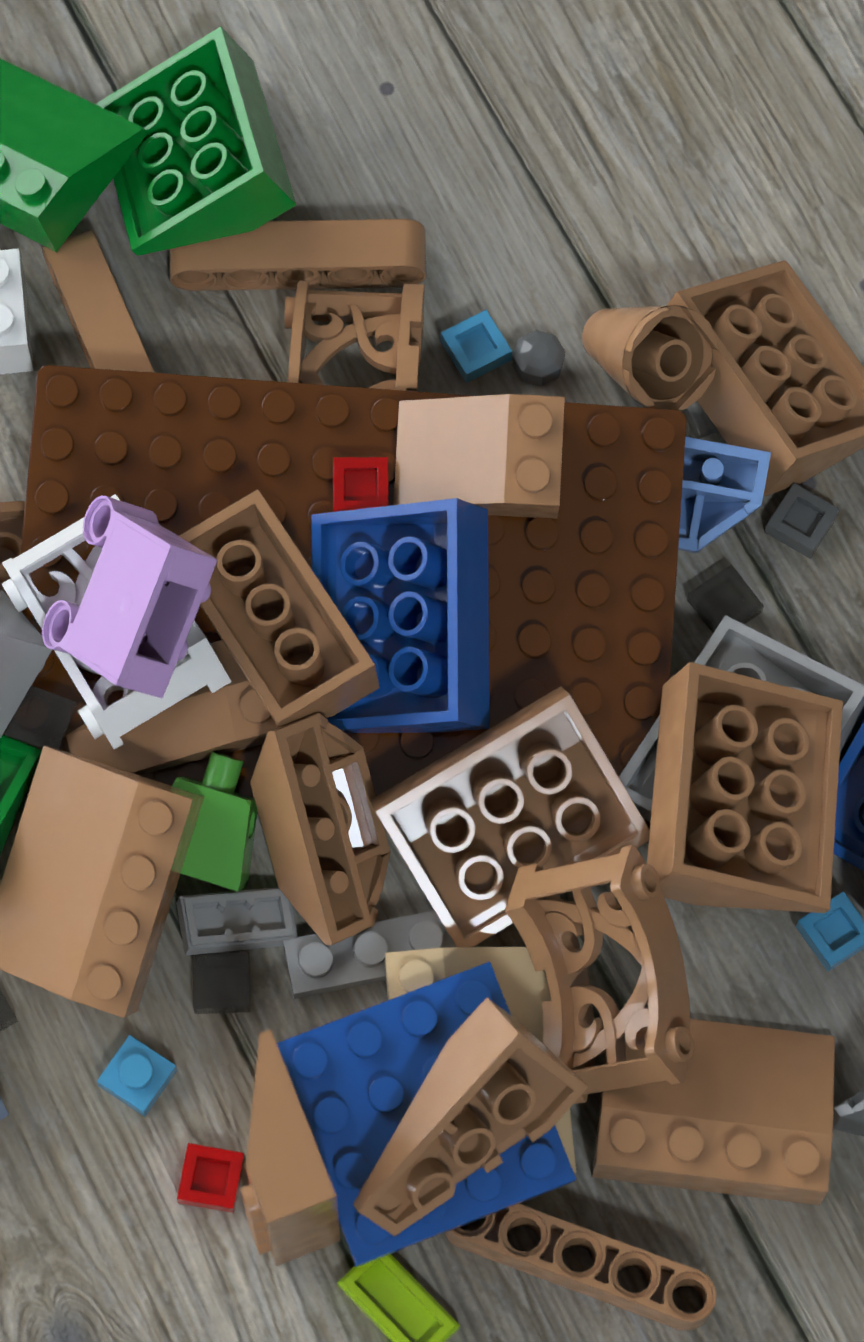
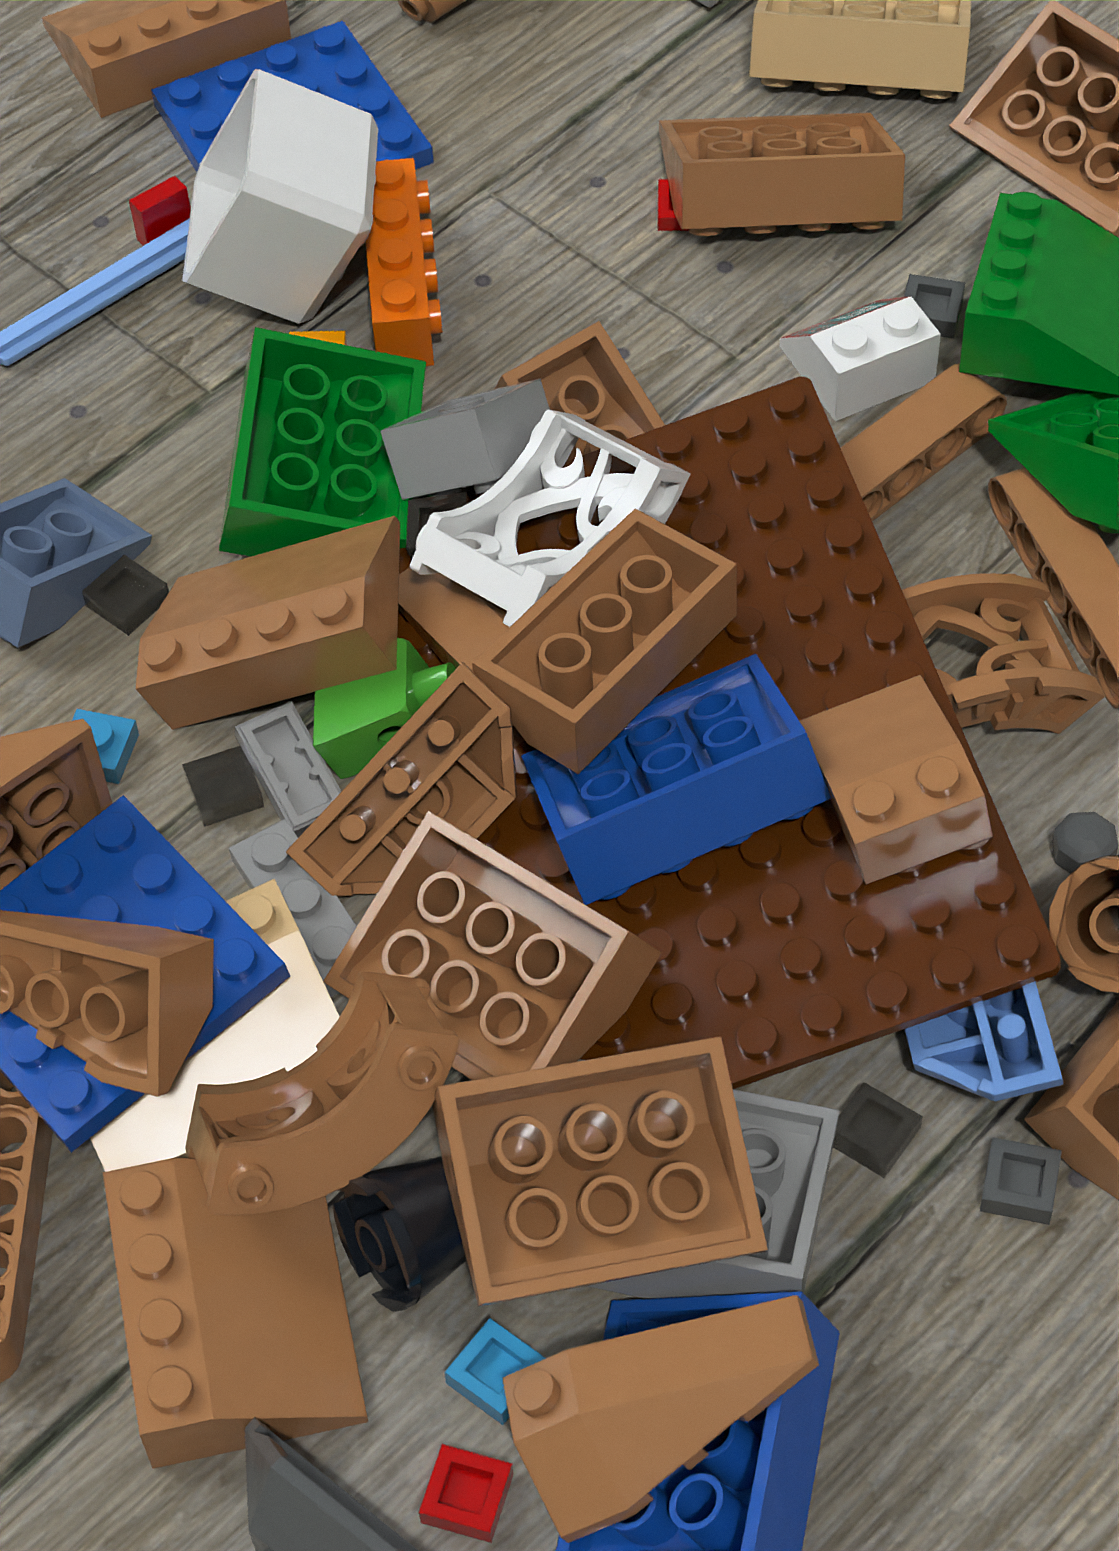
camera: 75 degrees right, 15 degrees down
(137, 599) = (548, 483): lavender piece -> none
(360, 483) = (809, 680): red tile -> none
(476, 346) = (1063, 775): dark azure plate -> none
(720, 954) = (401, 1230): none -> black cone

